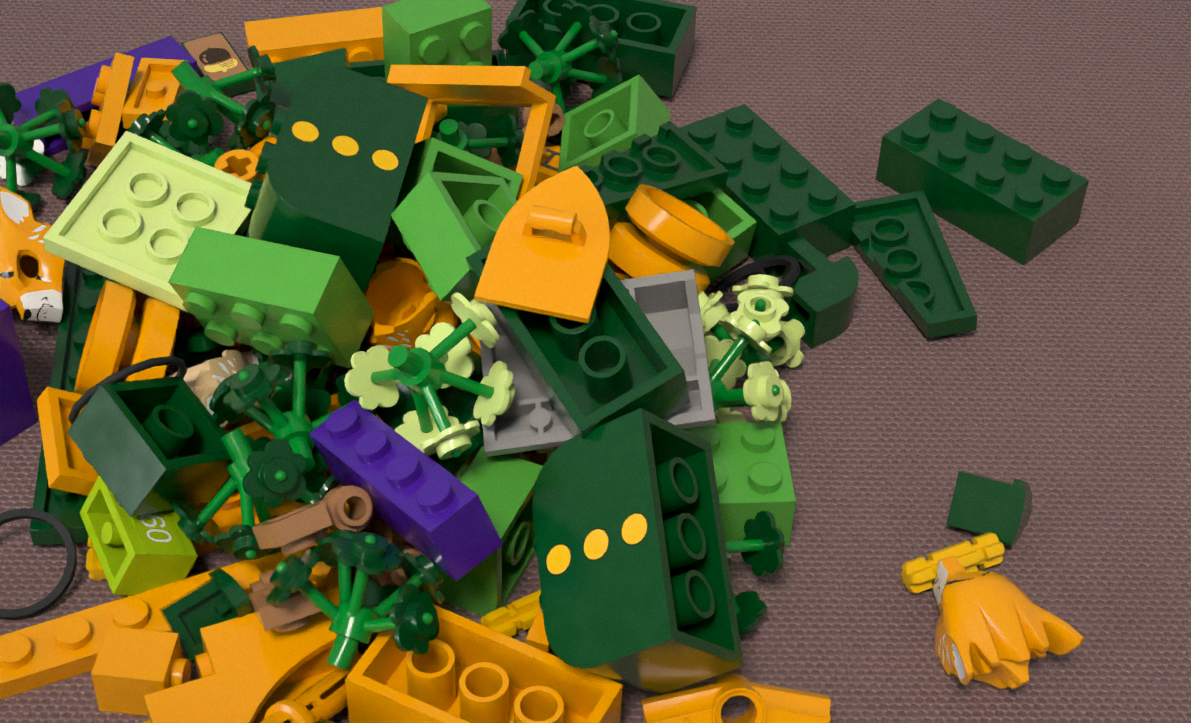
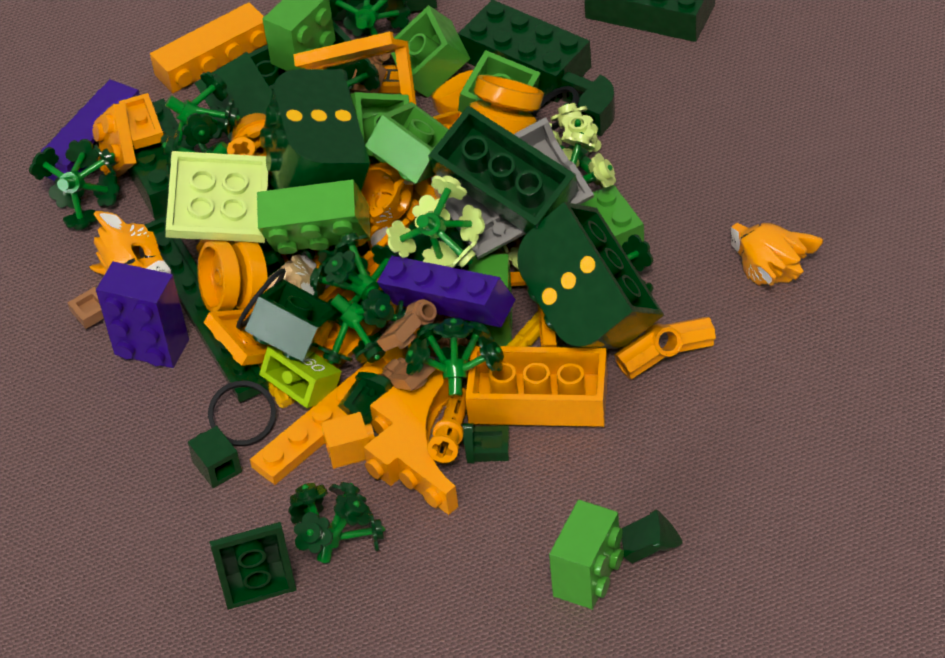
camera: 15 degrees left, 5 degrees up
(218, 60) = (145, 83): tile -> none
(550, 250) = (474, 134): light orange shield -> none
(663, 161) = (456, 82): dark green wing -> none
(913, 261) = (630, 59): dark green wing -> none
(984, 551) = (722, 238): yellow axle -> none
(991, 506) = (742, 189): dark green tile -> none

